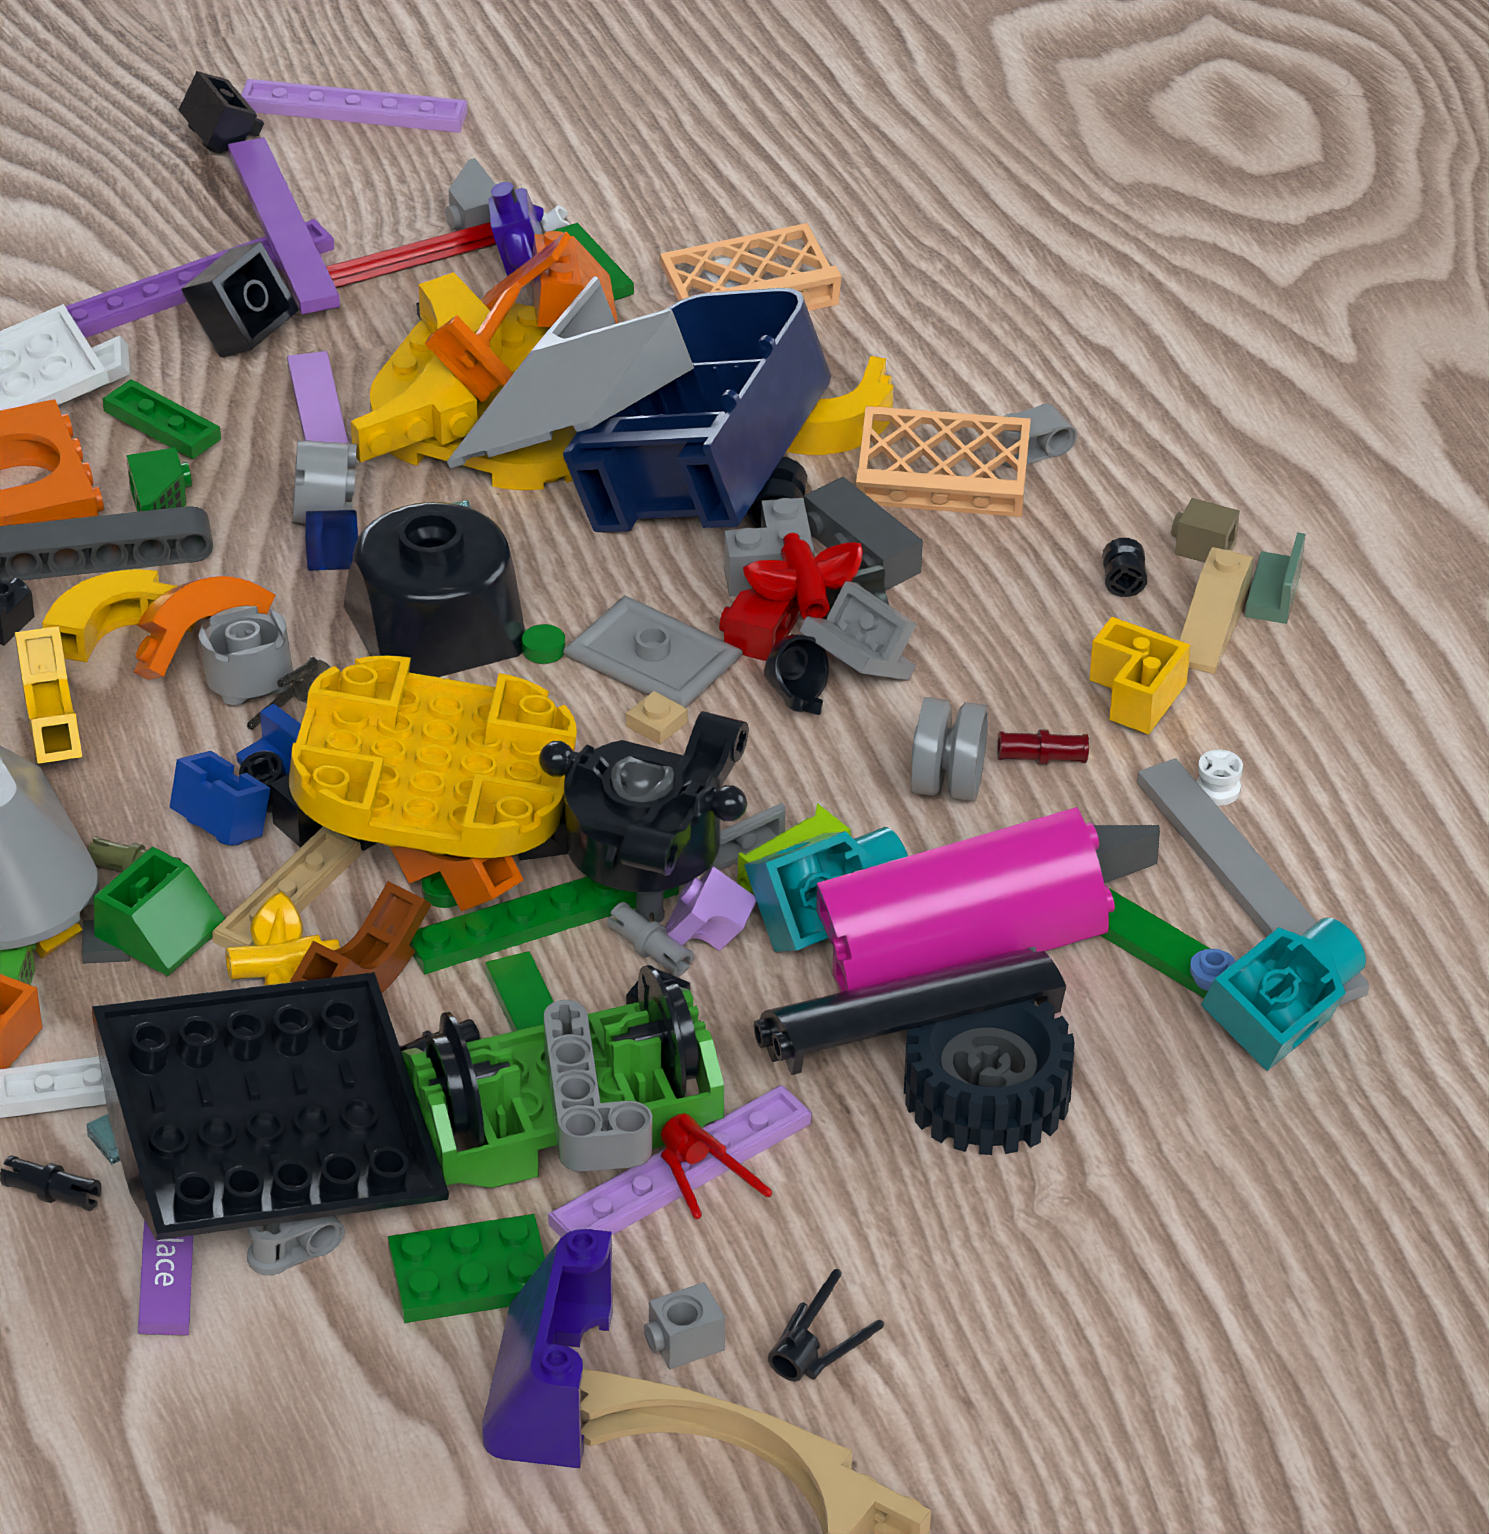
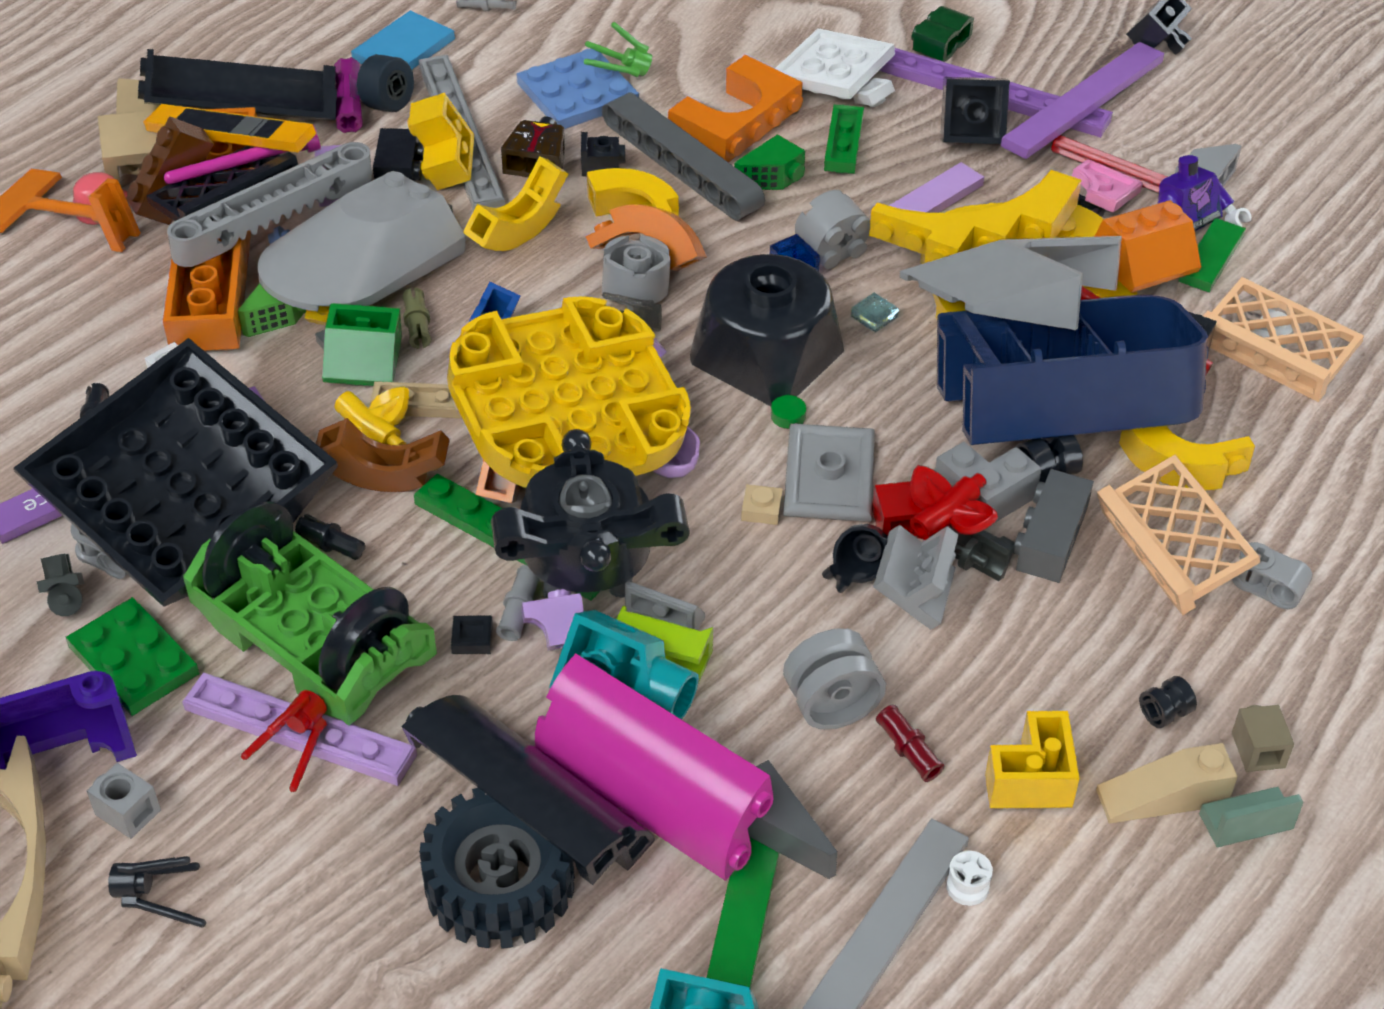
camera: 60 degrees right, 5 degrees up
(59, 268) = (942, 33): none -> dark green brick
(326, 1278) = (61, 583): none -> pearl dark grey hips
(355, 105) = (1253, 79): lavender tile -> none
(405, 276) = (1106, 186): none -> bright pink tile
(469, 353) = (987, 221): orange piece -> none
(519, 989) = (417, 562): green tile -> none
(587, 1131) = (272, 617): light grey beam -> none
(1208, 965) = (724, 959): medium blue plate -> none

